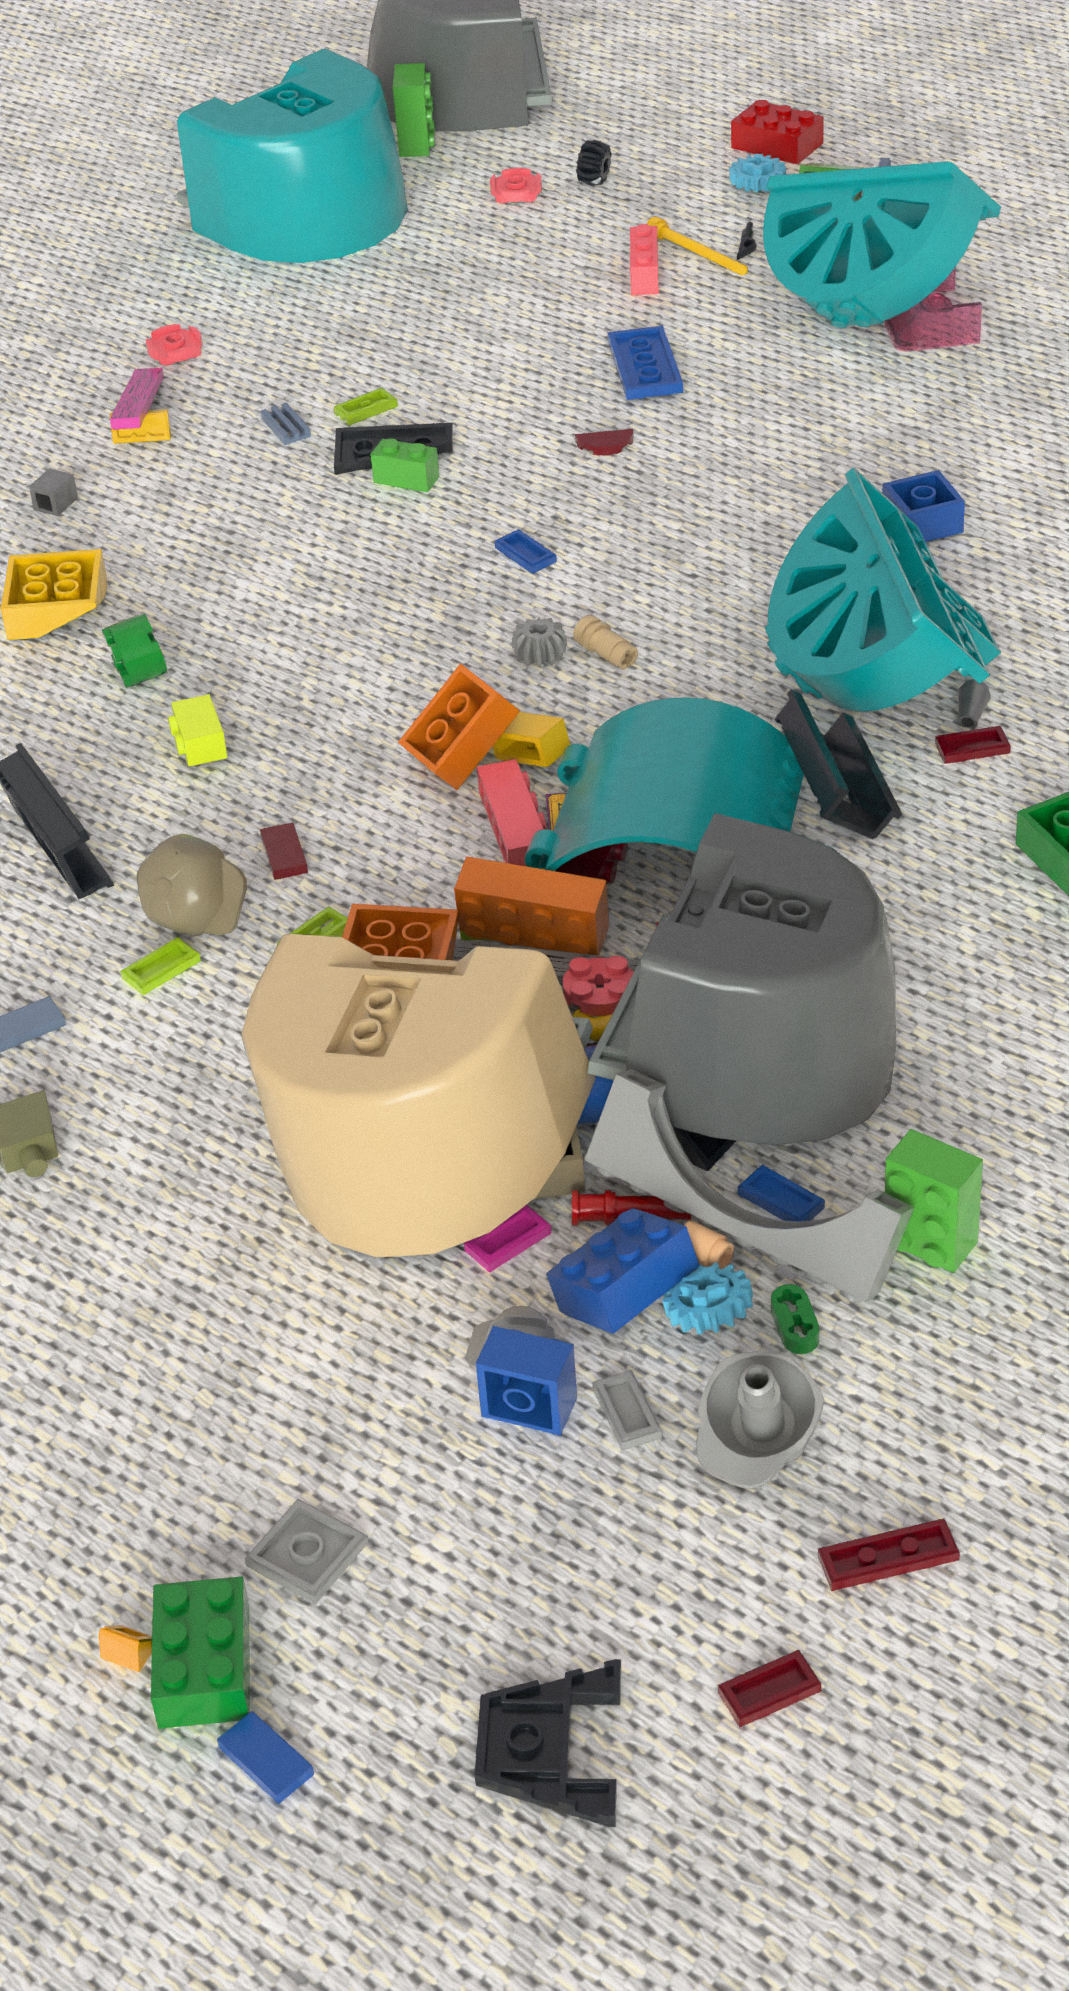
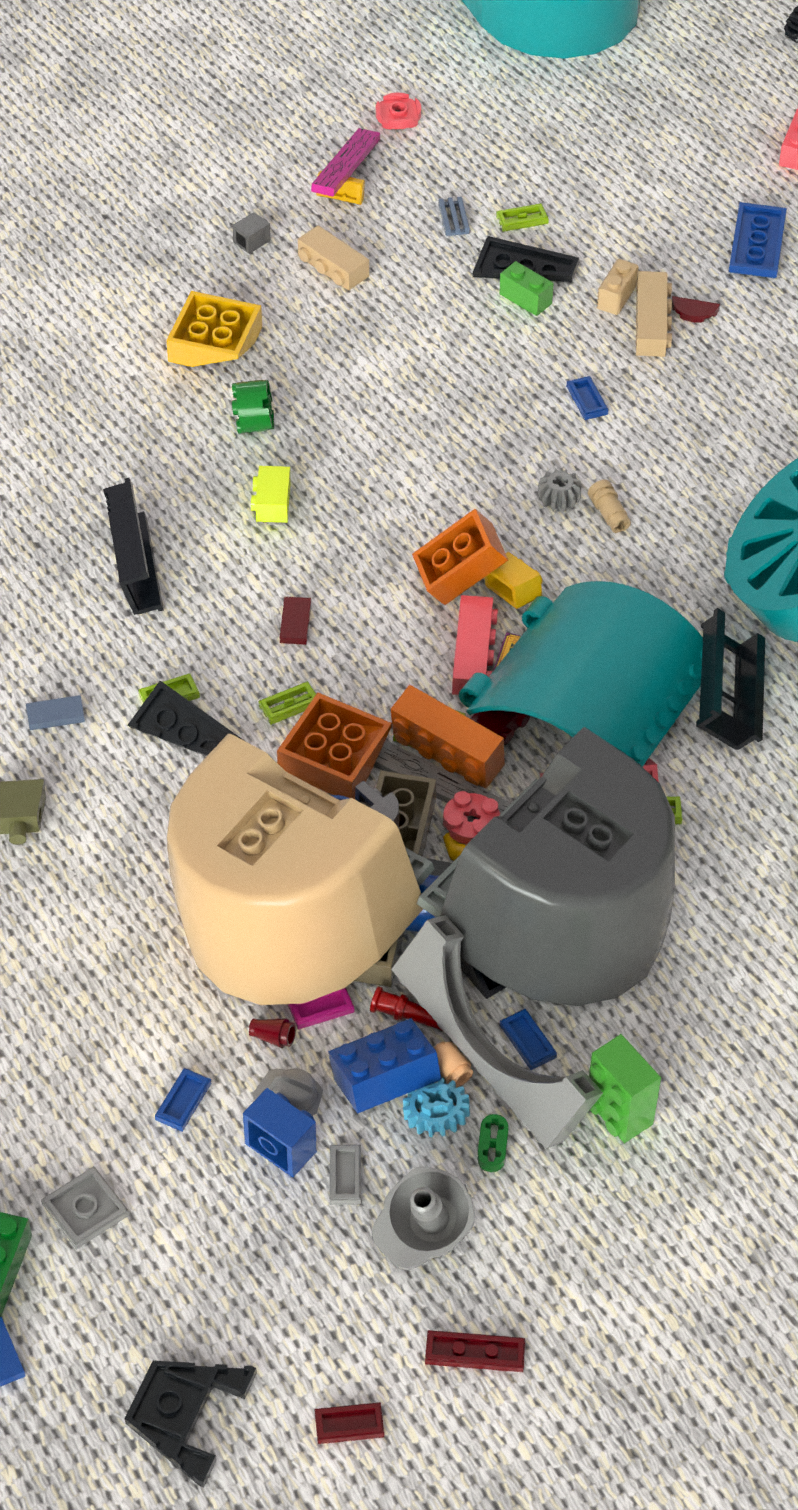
camera: 15 degrees right, 10 degrees up
(163, 492) = (333, 257): none -> tan brick
(188, 987) = (178, 721): none -> black wing
(191, 887) = (208, 639): dark tan piece -> none
(379, 1390) = (183, 1099): none -> blue tile
(462, 1279) = (274, 1031): none -> dark red cone
(509, 438) = (617, 286): none -> tan brick
(516, 185) = (722, 28): coral plate -> none
(562, 455) = (652, 313): none -> tan brick

